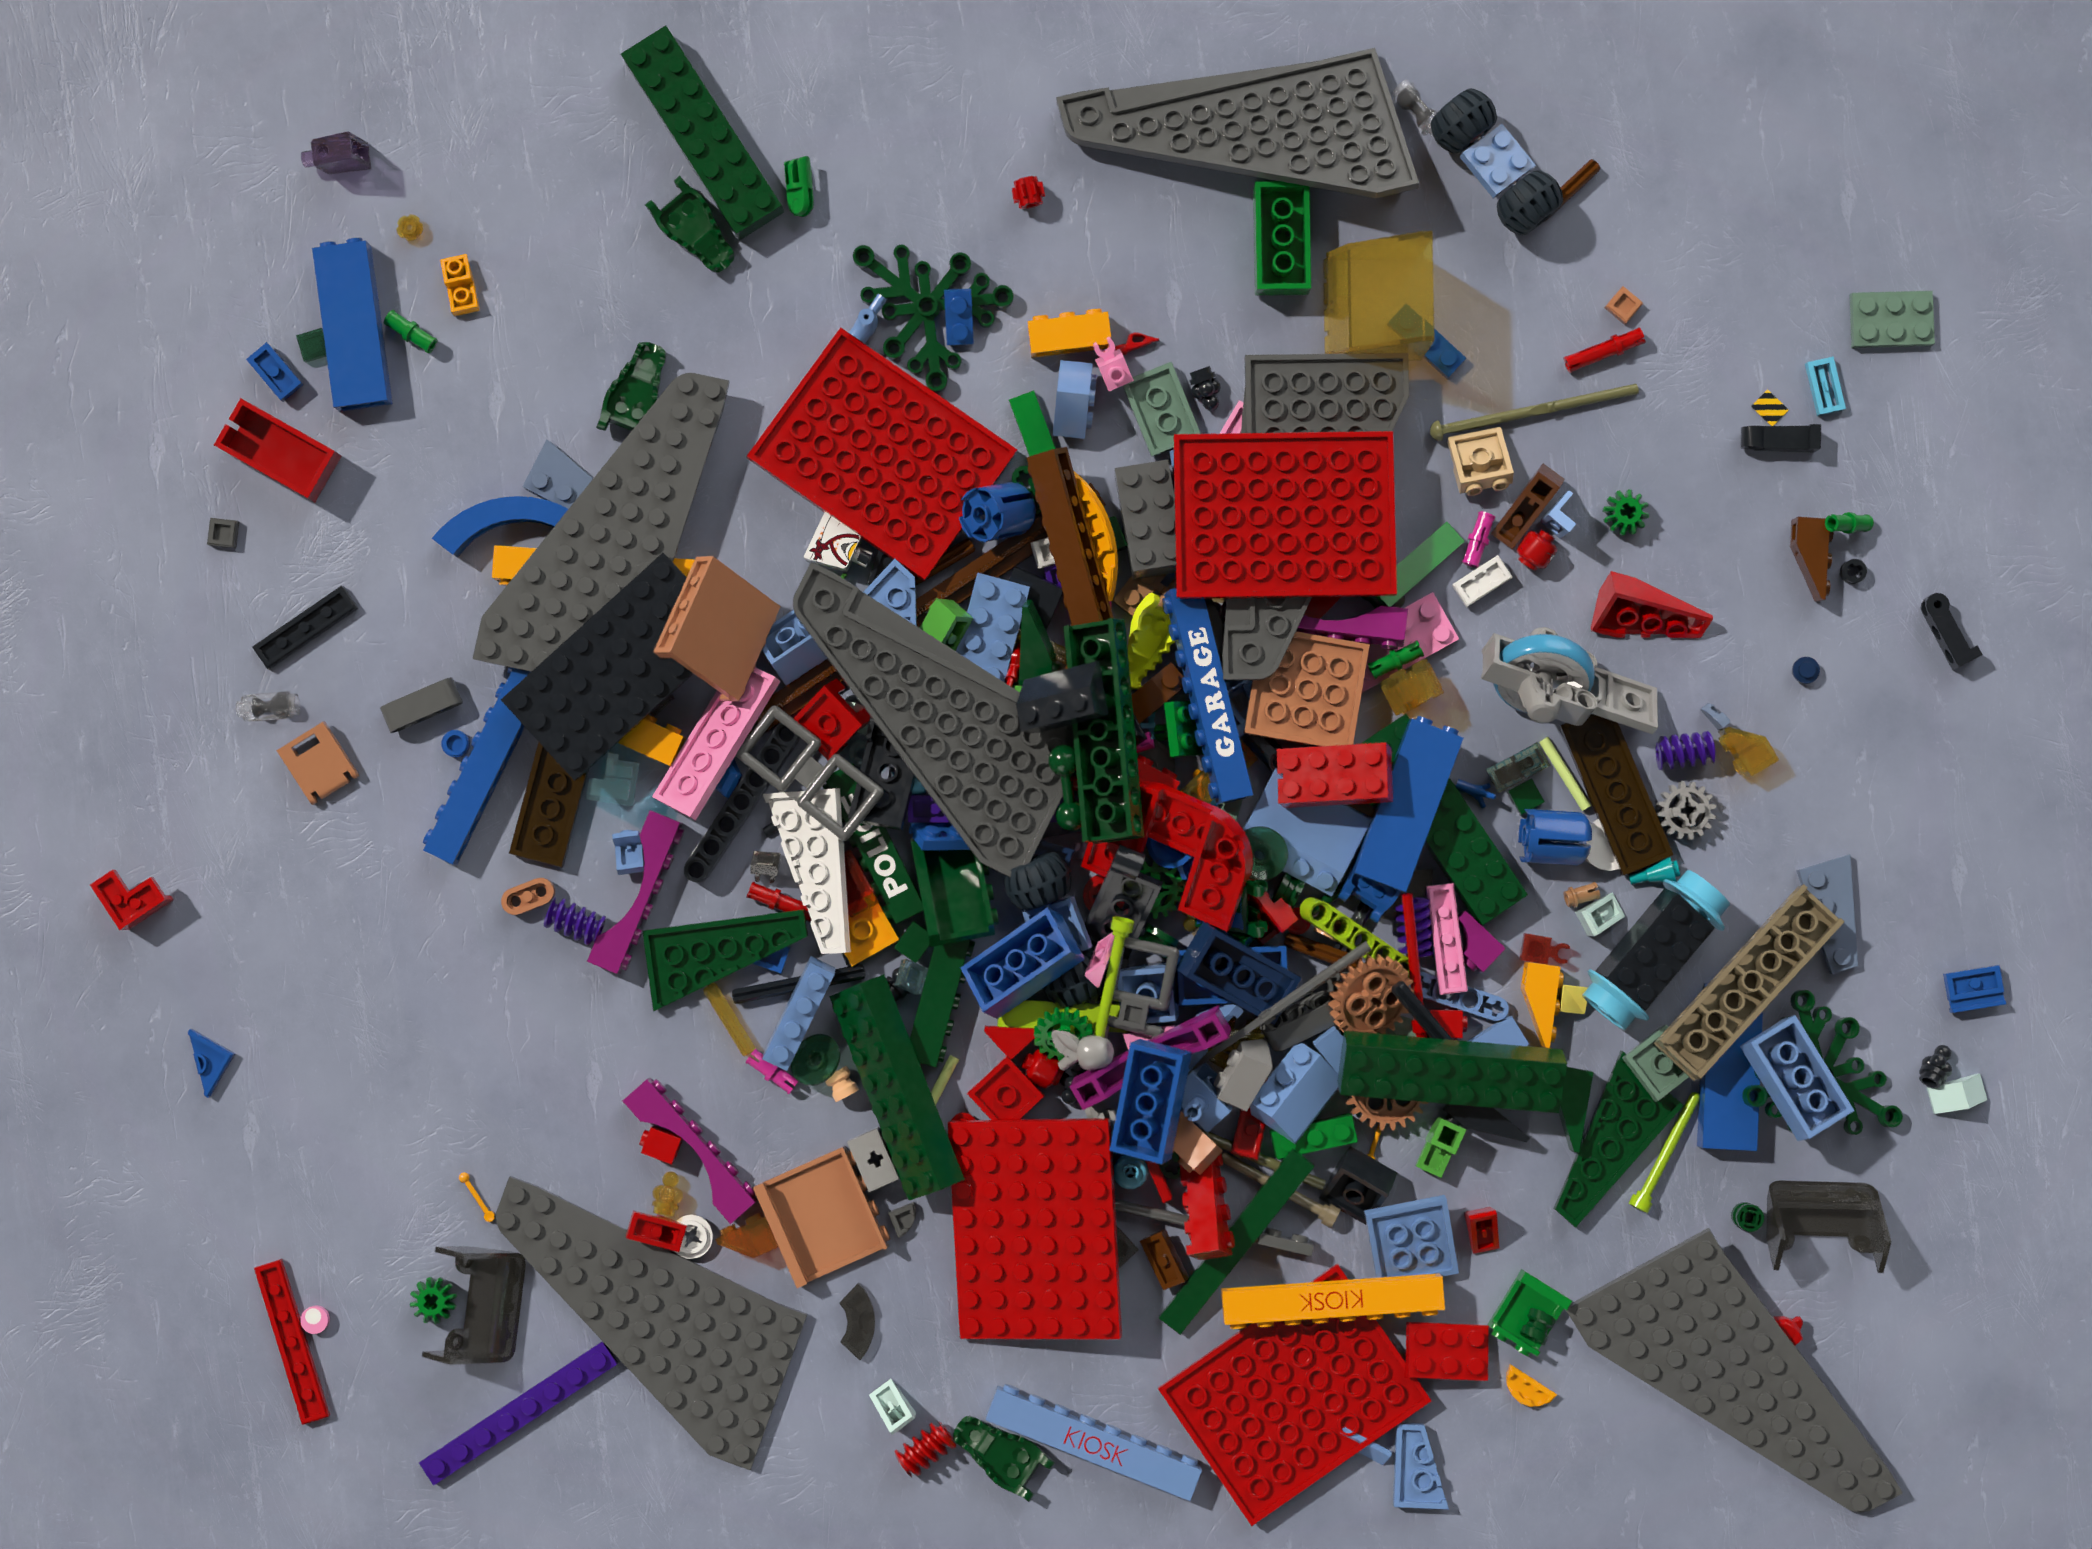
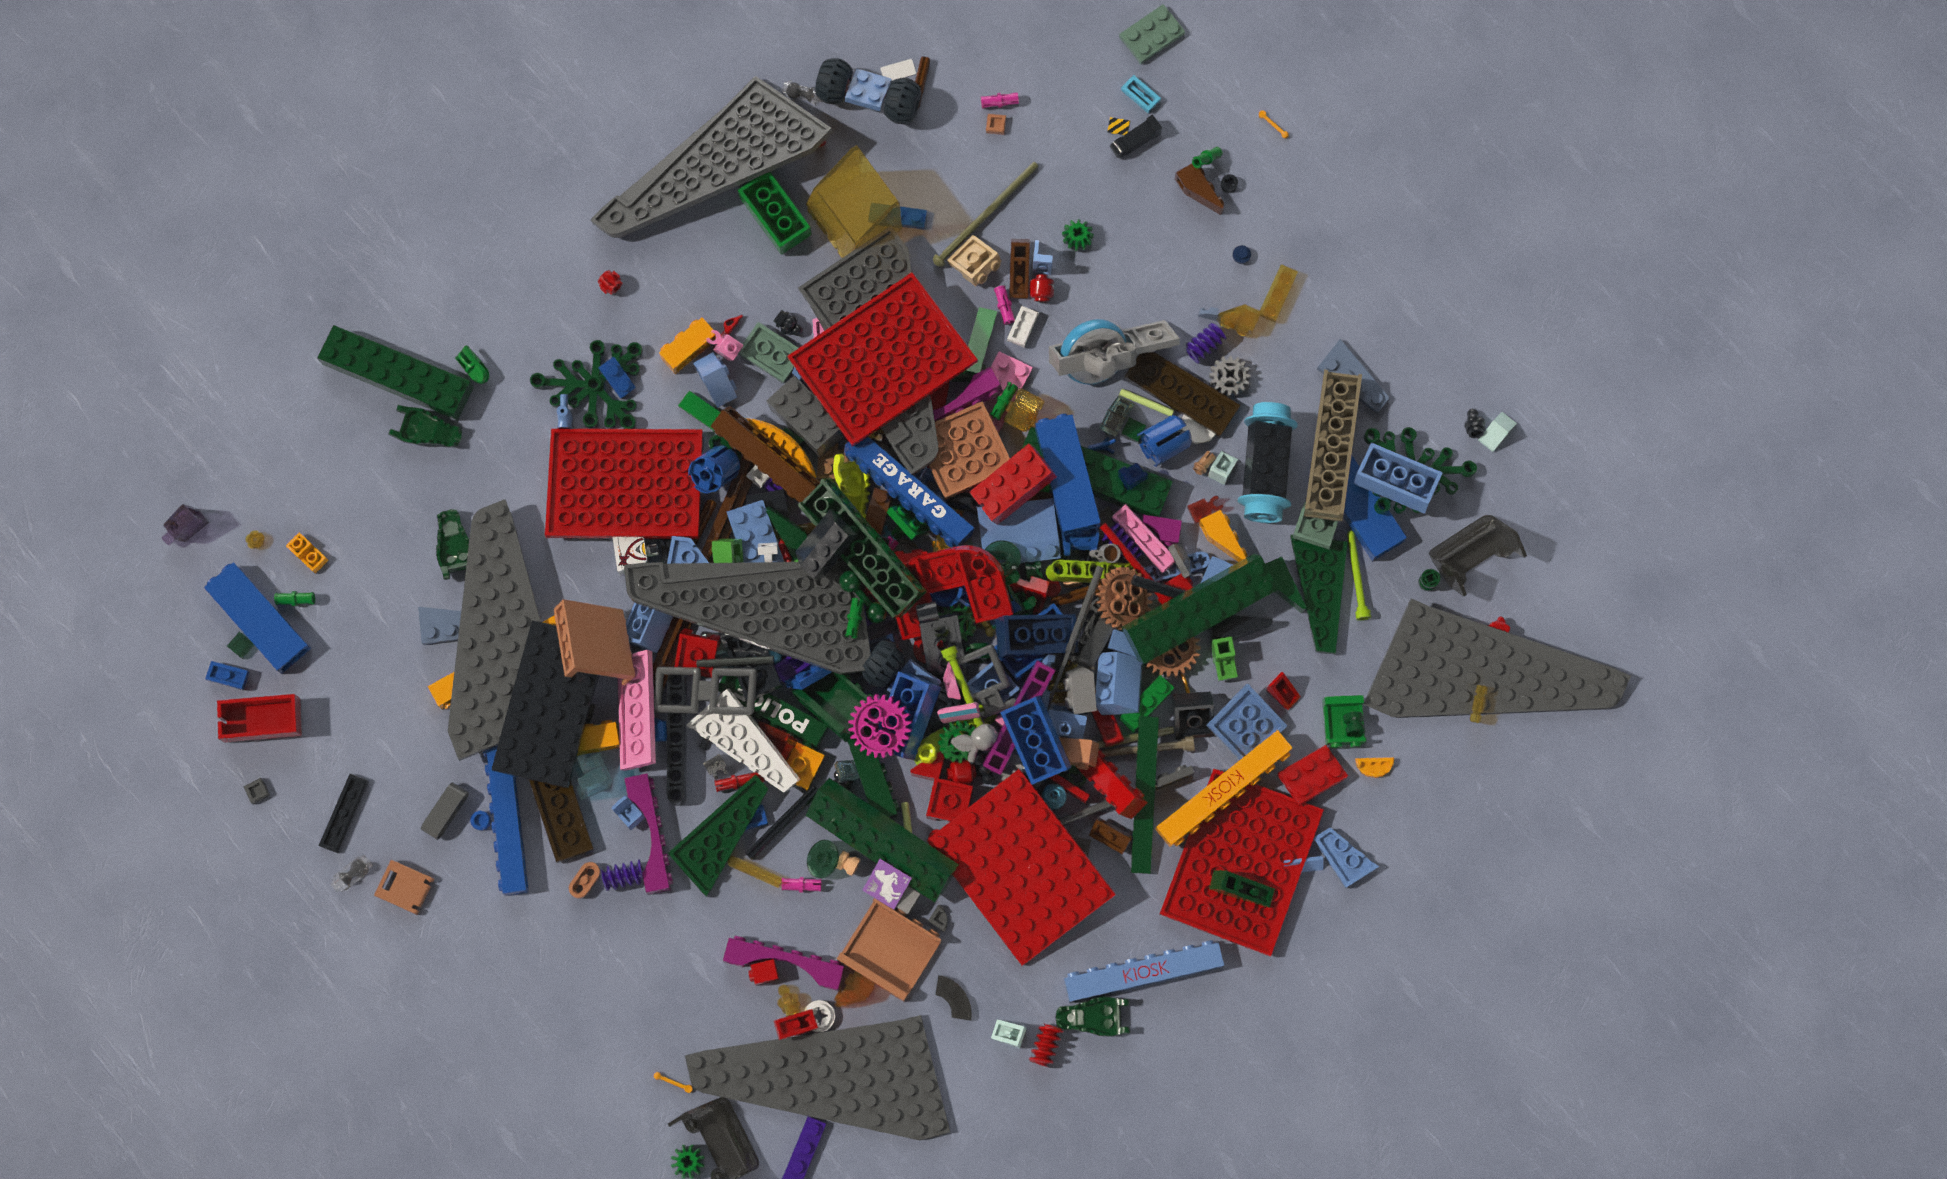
camera: 30 degrees left, 10 degrees down
(126, 906) = (345, 1048): red panel -> none
(210, 1060) = (454, 1110): blue tile -> none
(485, 516) = (415, 669): blue arch -> none
(798, 1013) = (794, 837): medium blue brick -> none
(867, 763) = (735, 661): none -> pearl dark grey bar
(867, 1143) = (887, 884): none -> medium lavender sticker
(913, 942) = (834, 749): dark green panel -> none
(994, 654) = (767, 550): none -> white tile
(1001, 946) = (886, 709): none -> dark pink gear
(1017, 1022) = (927, 753): none -> neon yellow tile
(1039, 807) = (854, 618): none -> green pin
(1085, 1002) = (959, 712): none -> bright pink slope
(1271, 1428) = (1241, 888): none -> dark green slope
(1389, 929) = (1107, 553): none -> piece
(1472, 995) = (1181, 559): none -> dark grey tile
(1484, 857) = (1132, 475): none -> clear blue panel
(1552, 156) = (899, 70): none -> white sticker
(1572, 1000) = (1241, 525): light yellow slope -> none
(1614, 346) = (1006, 149): red pin -> none
(1636, 607) = (1121, 283): red wedge -> none
(1648, 278) = (999, 100): none -> dark pink pin
(1657, 873) = (1238, 422): teal cone -> none
(1700, 1404) = (1478, 704): none -> clear yellow axle
(1816, 747) = (1278, 293): none -> clear yellow plate
(1946, 631) = (1305, 181): black leg -> none
(1954, 511) = (1262, 114): none -> light orange hinge
(1974, 988) = (1464, 366): blue plate -> none

